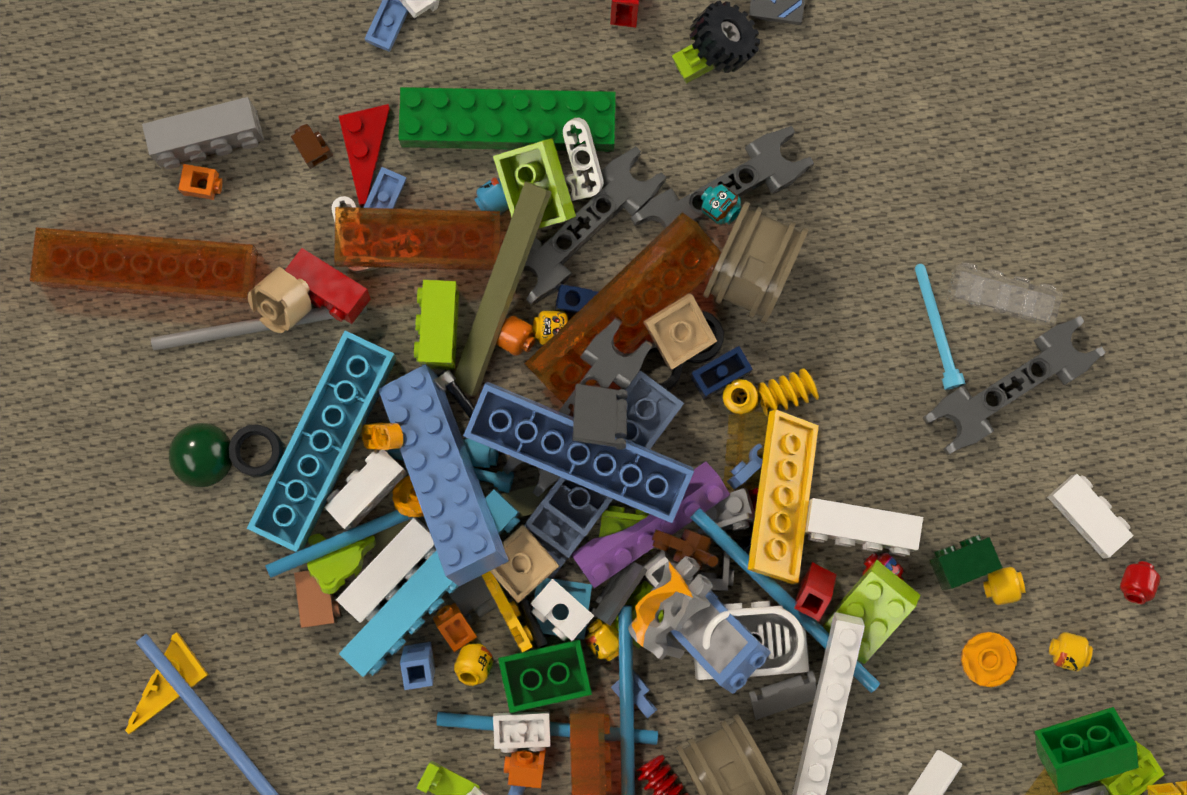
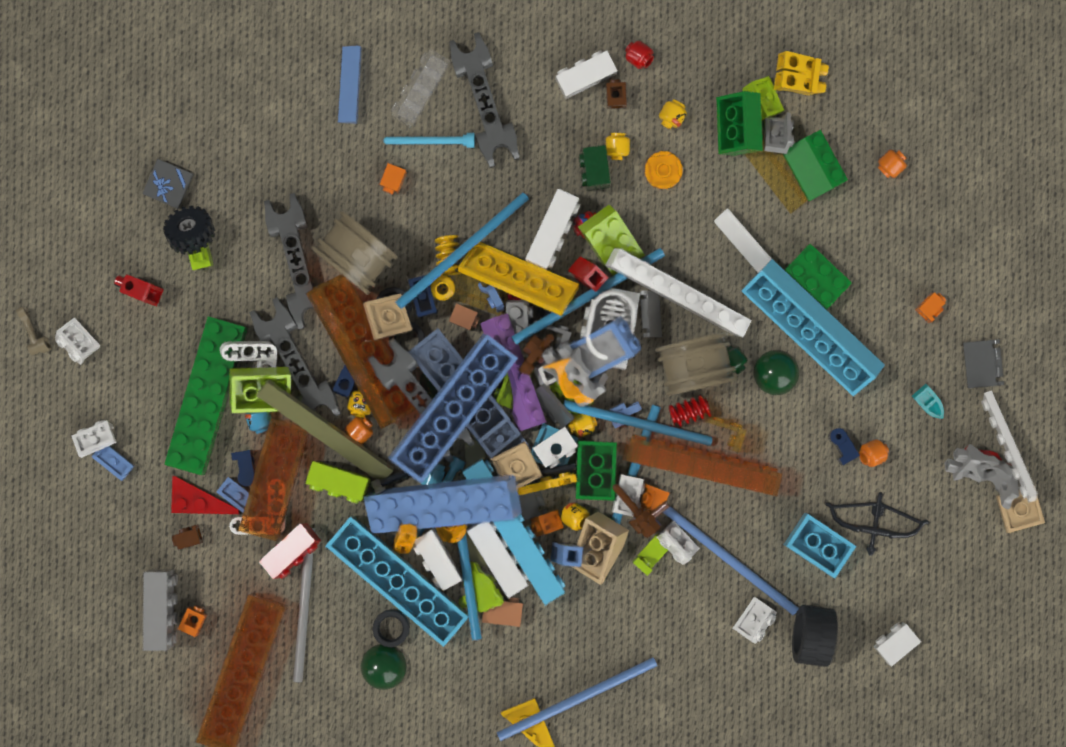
camera: 75 degrees left, 5 degrees up
(280, 300) = (292, 585): tan brick -> none
(427, 196) = (246, 466): none -> dark blue leg
(443, 712) = (601, 544): none -> tan slope
(493, 762) = (643, 520): none -> reddish brown piece
(600, 416) = (432, 387): dark grey piece -> none
(707, 437) = (464, 317): none -> nougat brick
(721, 204) = (307, 265): teal head -> none
(799, 408) = (461, 251): none -> dark azure piece
(870, 290) = (392, 179): none -> orange brick
(981, 199) = (349, 84): none -> medium blue slope
(1064, 570) = (616, 86): none -> reddish brown brick

